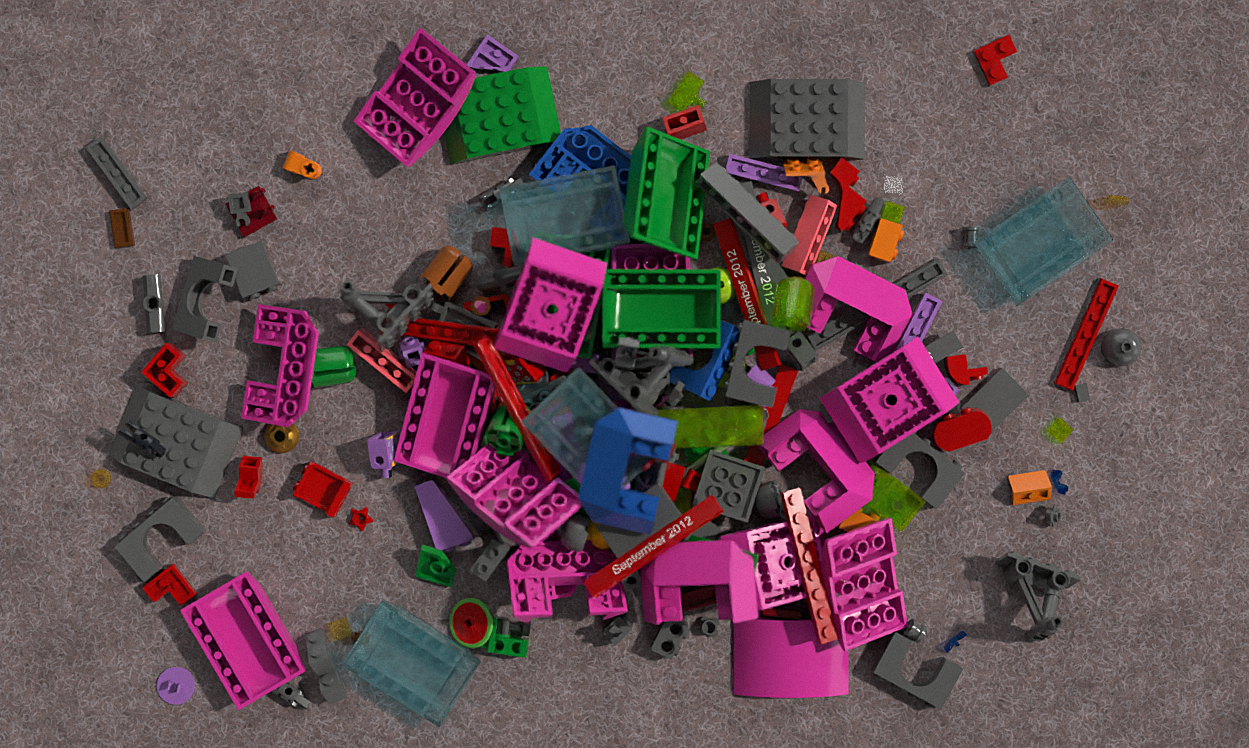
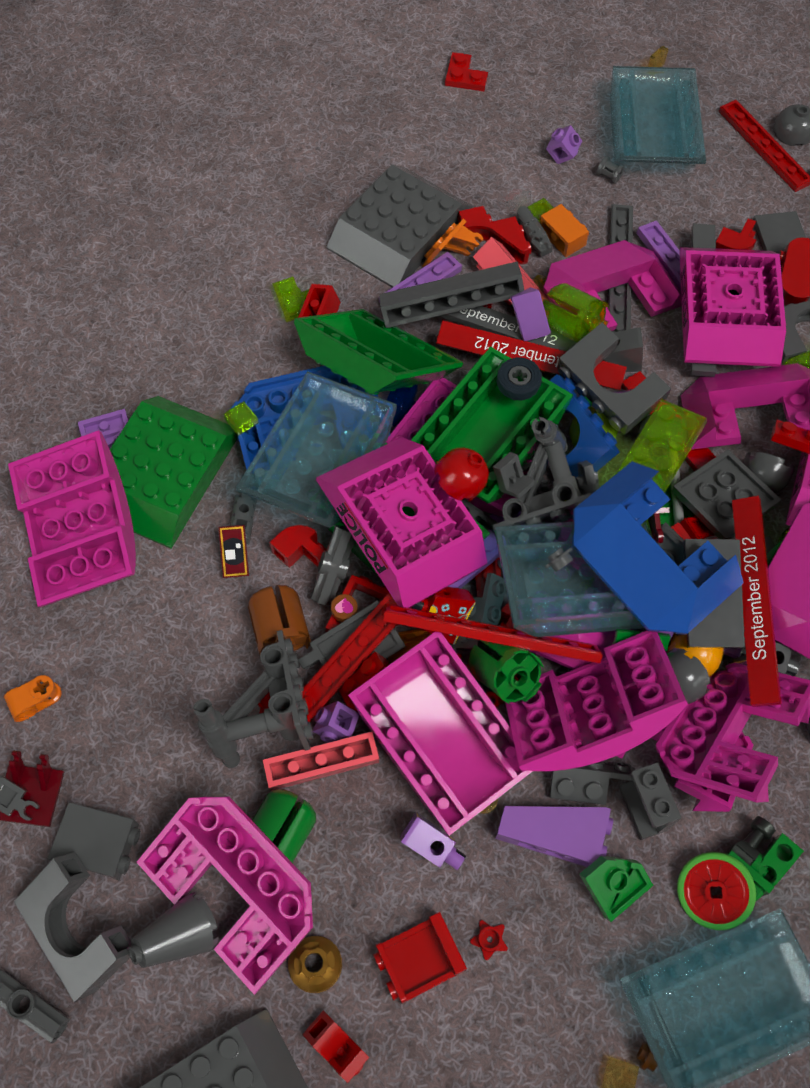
camera: 50 degrees left, 25 degrees down
(162, 370) = (110, 1058): red brick -> none
(238, 356) = (175, 934): none -> dark grey cone
(473, 208) = (233, 551): none -> tile
(560, 142) = (241, 418): none -> clear neon green plate
(581, 420) = (559, 559): none -> dark grey plate
(601, 321) = (462, 473): none -> red cylinder
(694, 306) = (509, 384): none -> black bush
(769, 276) = (530, 314): none -> medium lavender slope
(968, 187) = (564, 144): none -> medium lavender brick

